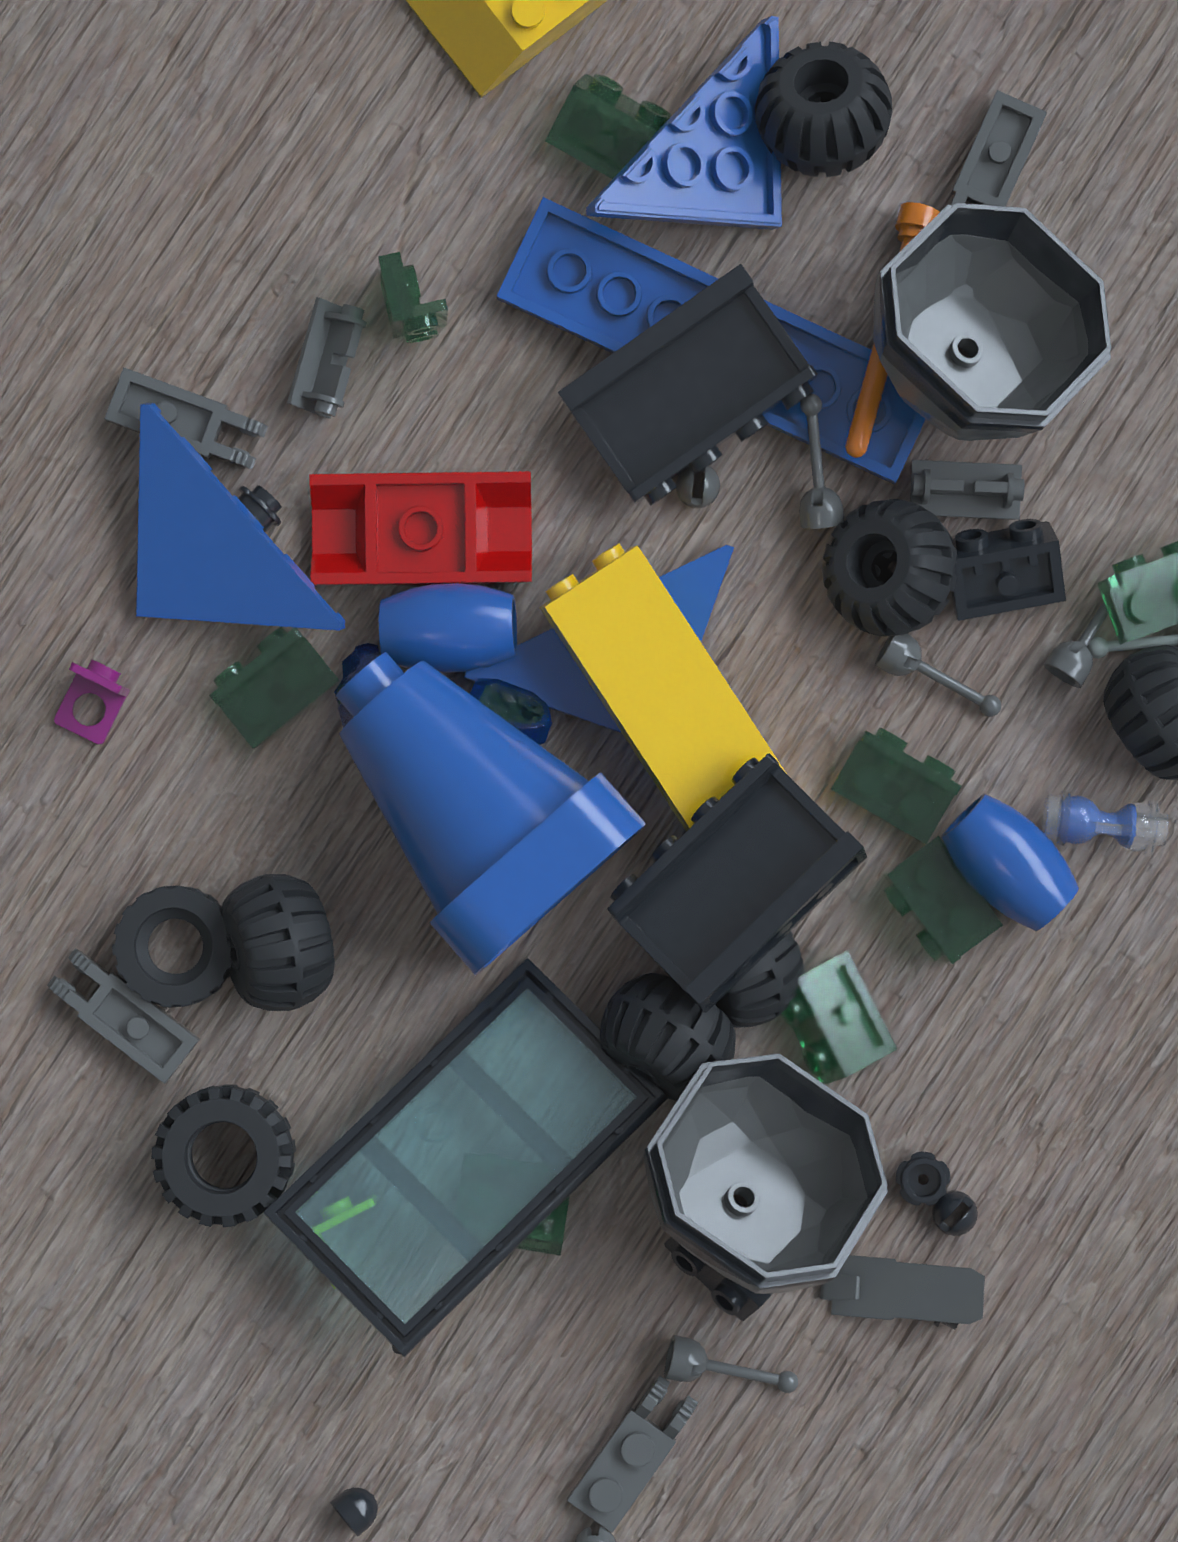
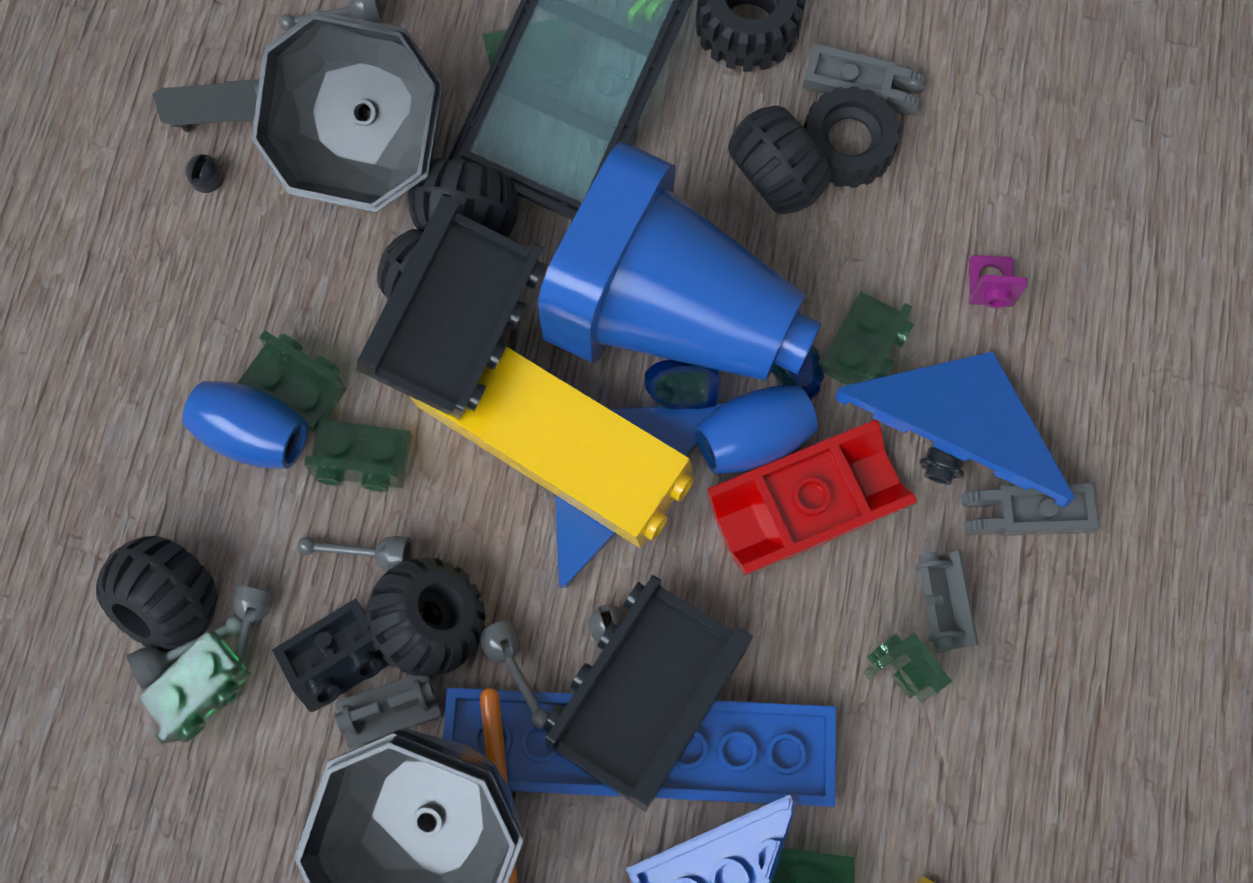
camera: 155 degrees right, 15 degrees down
(837, 1020) = (339, 266): bracket -> none
(919, 1164) = (232, 175): black plate -> none
(1079, 820) = (202, 481): clear piece -> none

